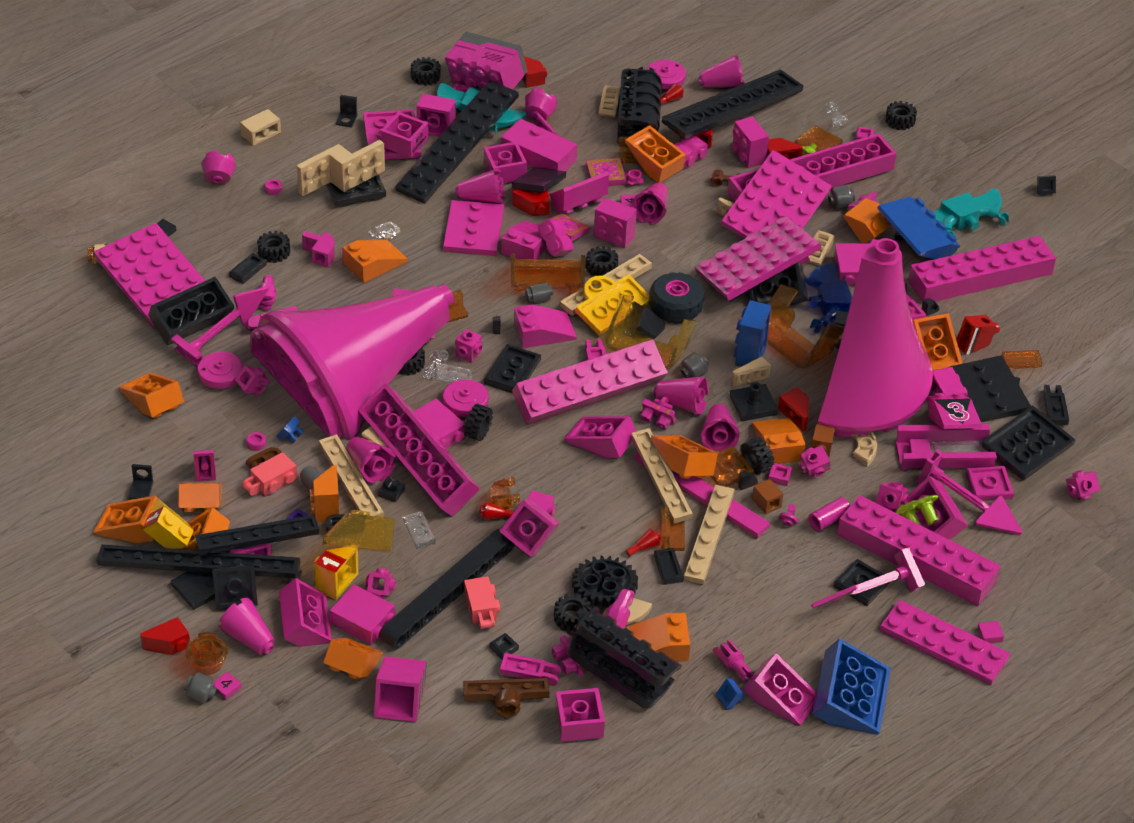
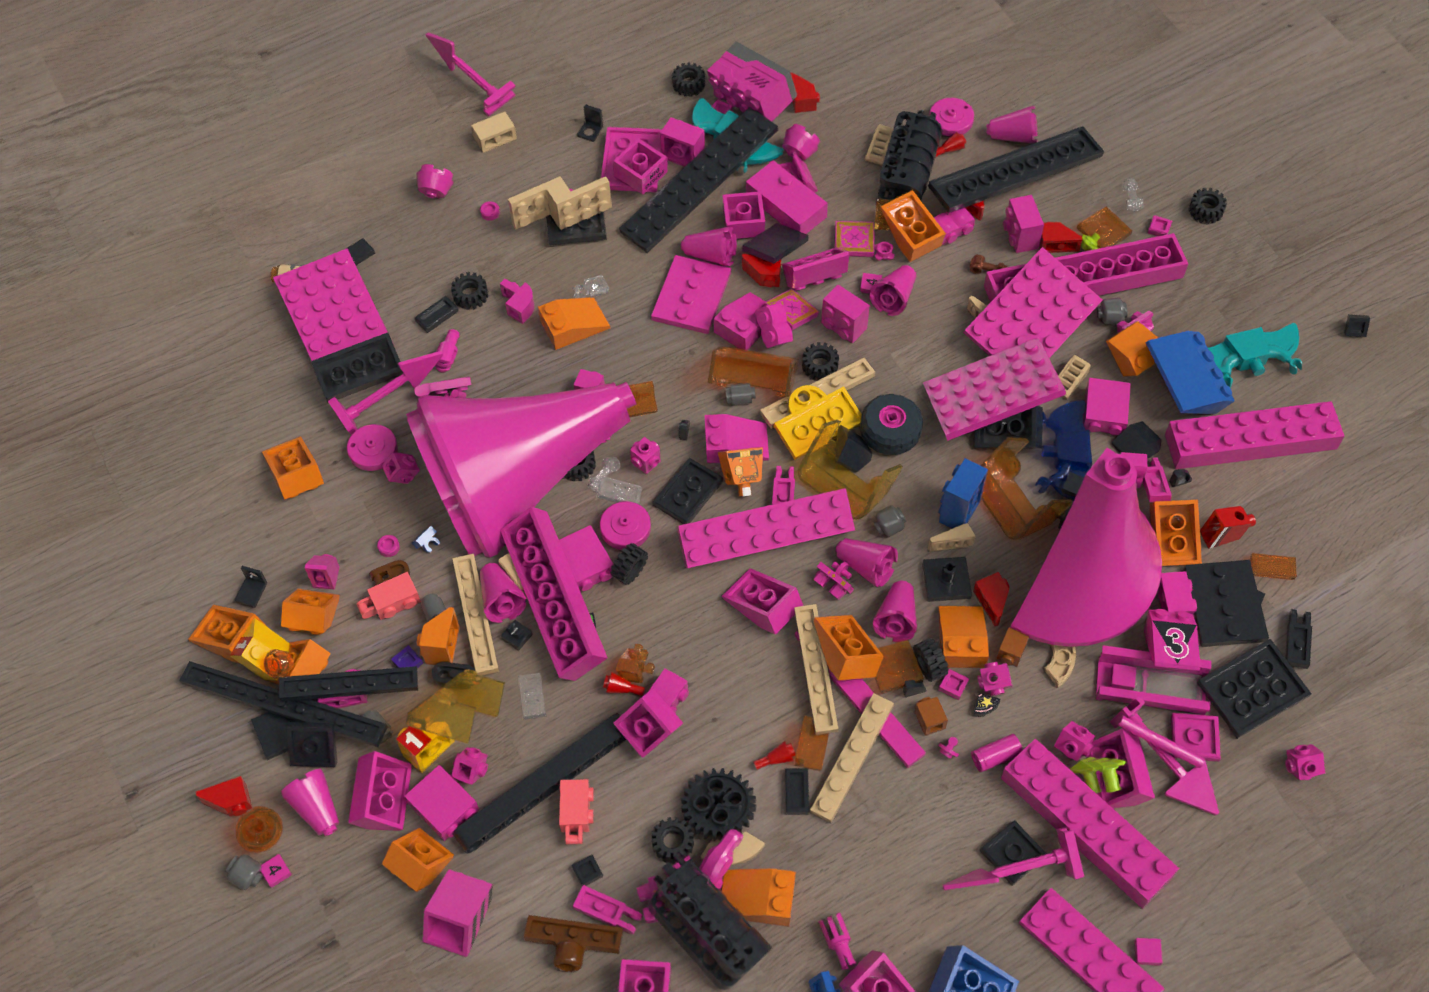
camera: 15 degrees right, 15 degrees up
(190, 525) = (278, 663): none -> clear orange cone
(200, 68) = (496, 98): none -> dark pink piece
(556, 341) = (742, 468): none -> orange torso
(810, 484) = (985, 705): none -> black tile
(962, 482) = (1160, 741): none -> dark pink piece

